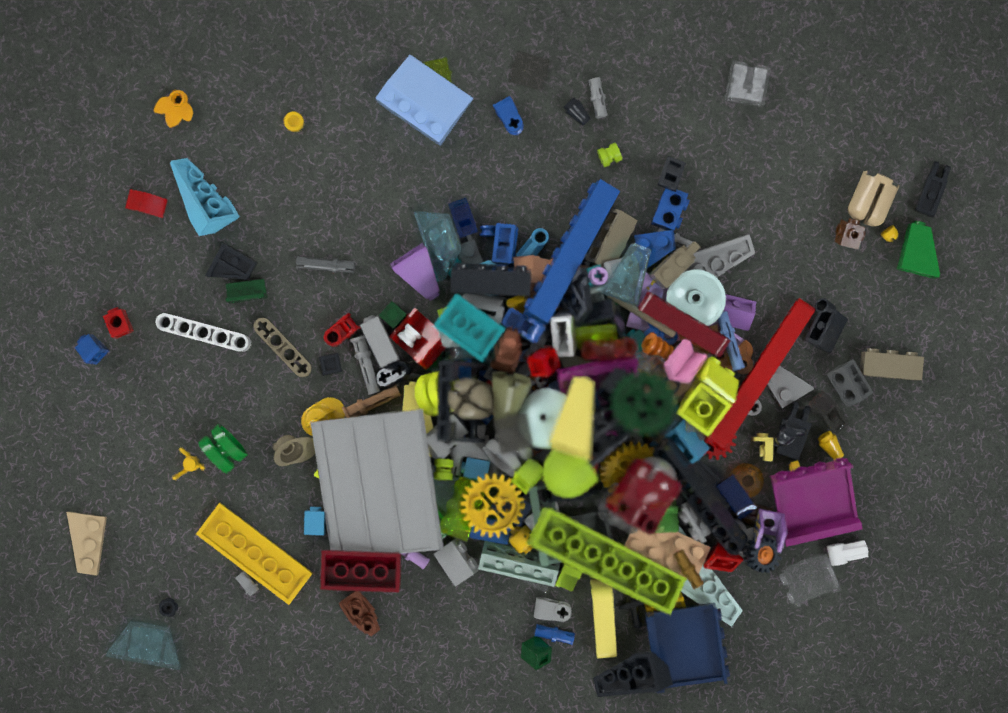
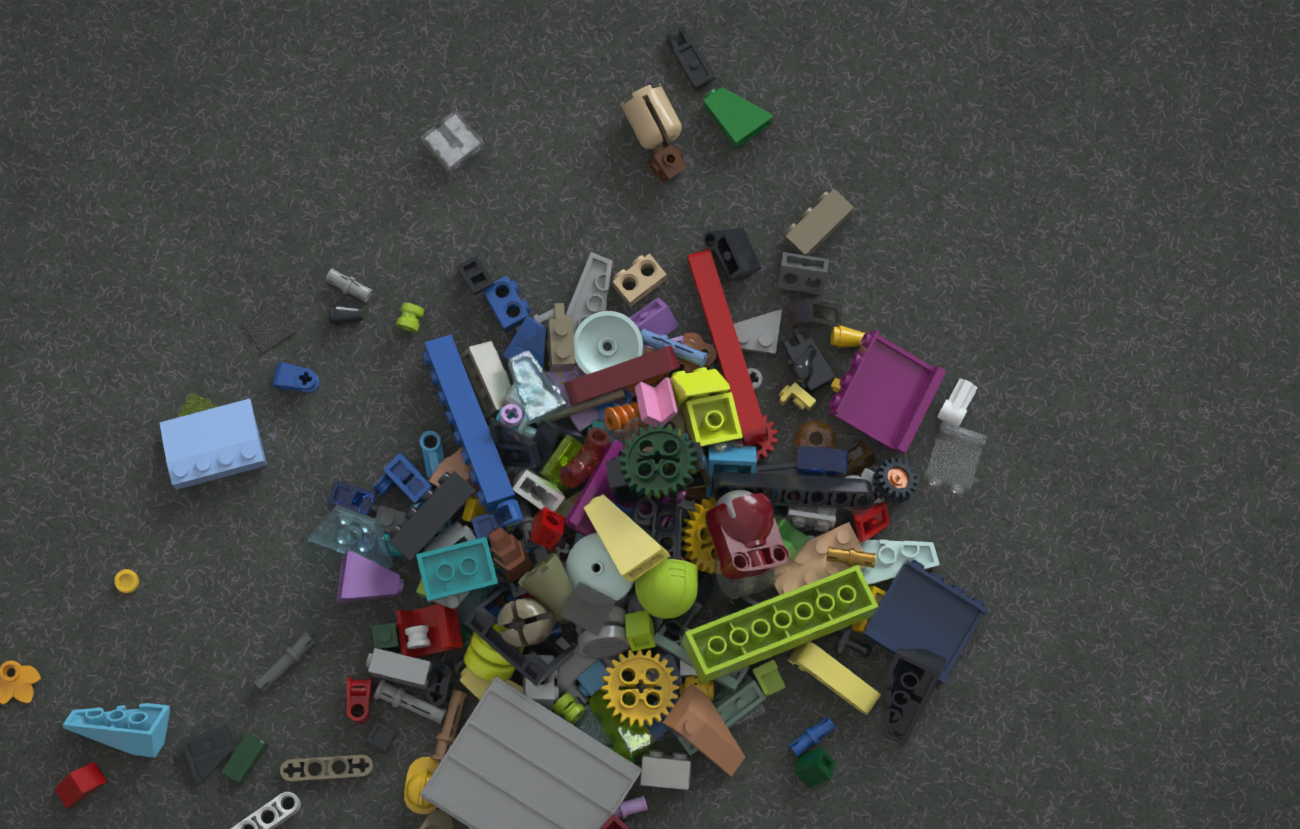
camera: 50 degrees left, 10 degrees down
(501, 565) = (703, 728): none -> nougat wedge
(547, 609) = (783, 721): light grey piece -> none
(756, 285) = (643, 283): none -> tan brick
(778, 529) = (884, 448): medium lavender piece -> none
(890, 233) = (696, 128): yellow hinge -> none

